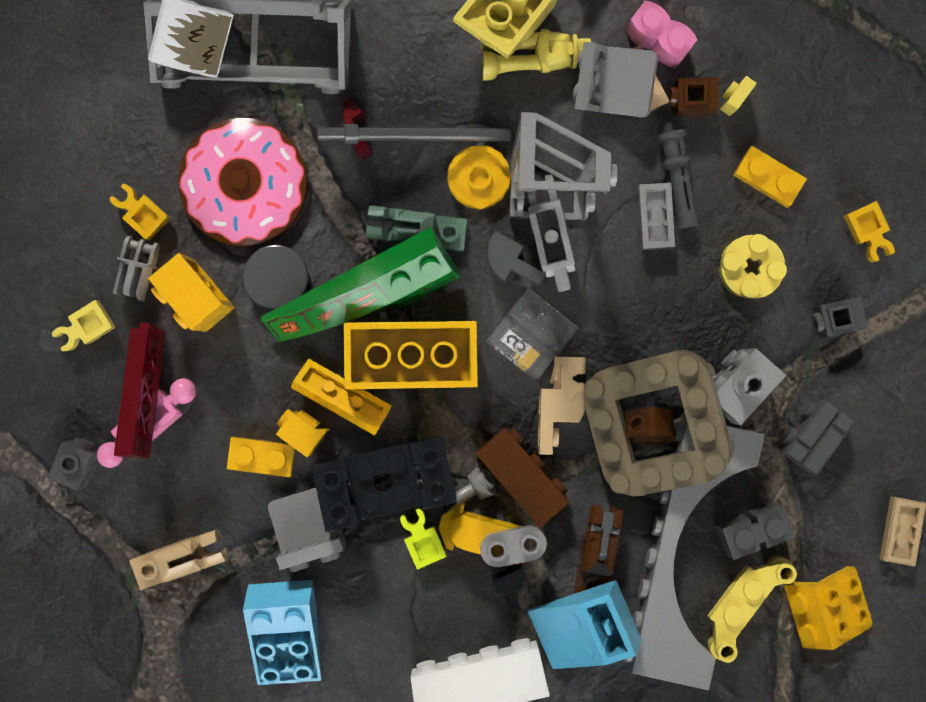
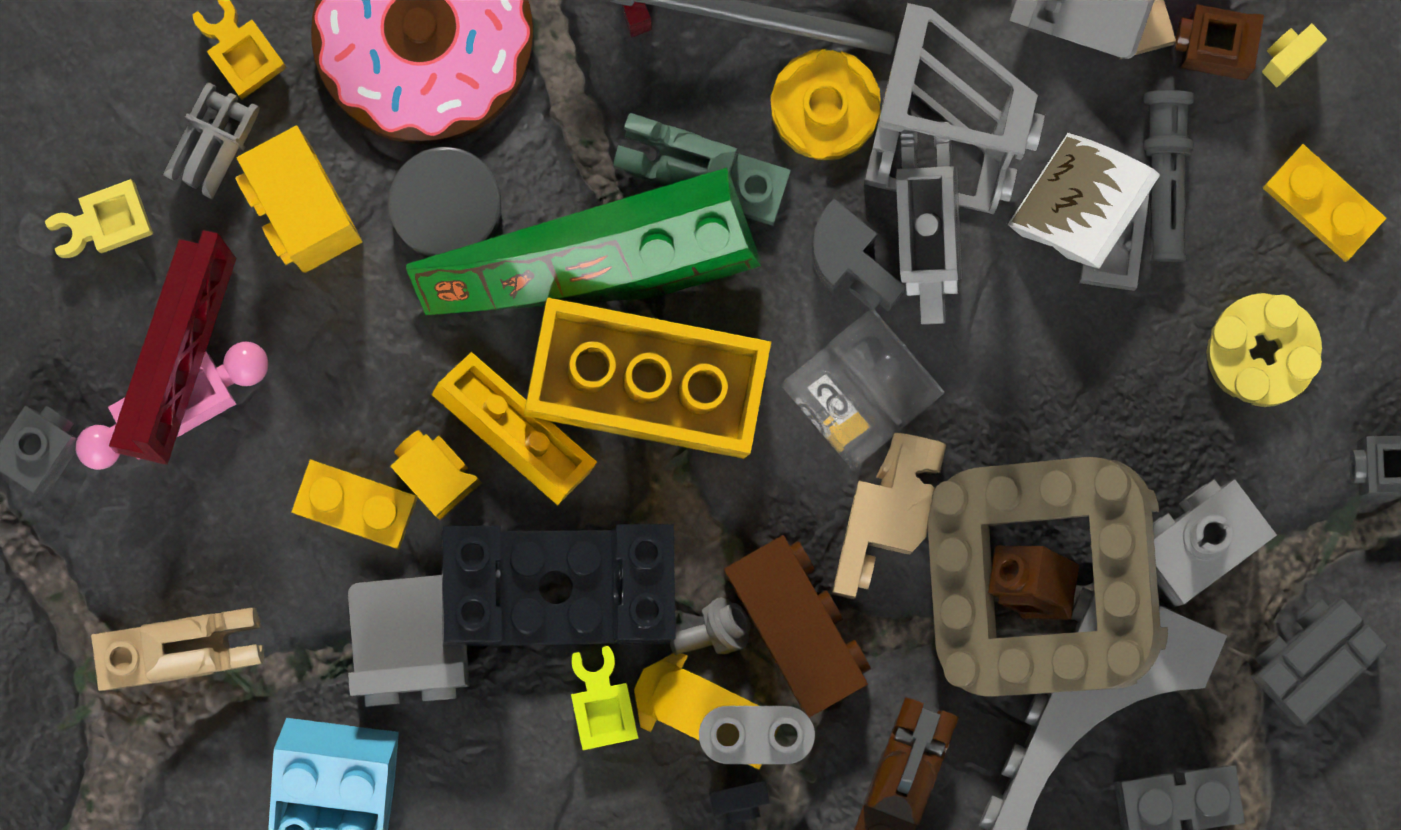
camera: 15 degrees right, 5 degrees down
(637, 203) = (1083, 200): none -> slope

